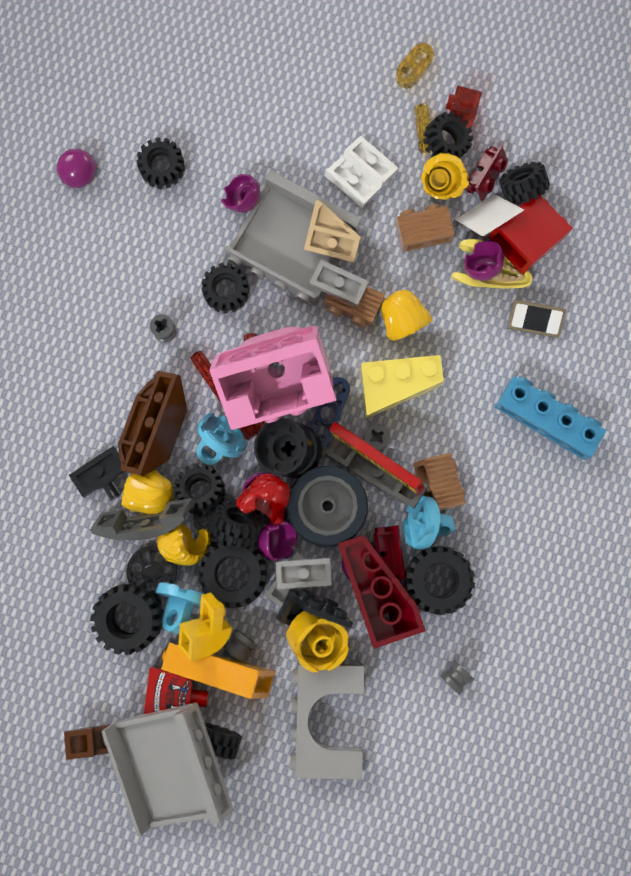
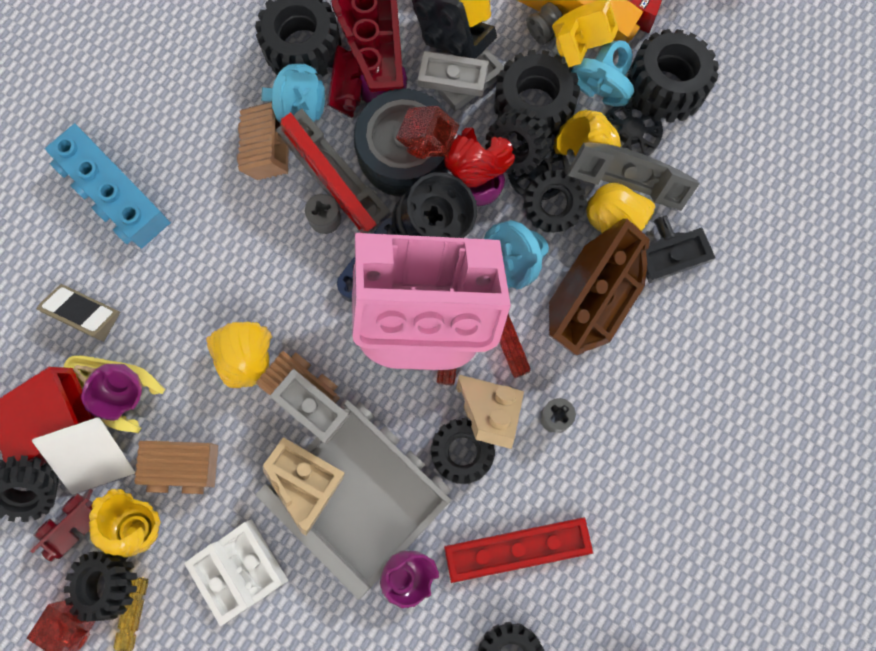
camera: 160 degrees left, 5 degrees down
(171, 234) = (518, 550): none -> red tile
(210, 319) = (491, 409): none -> tan wing
(277, 541) = (478, 117): magenta hair -> none
(306, 499) = (427, 132): none -> clear red brick
(397, 381) = (275, 270): light yellow wedge -> none

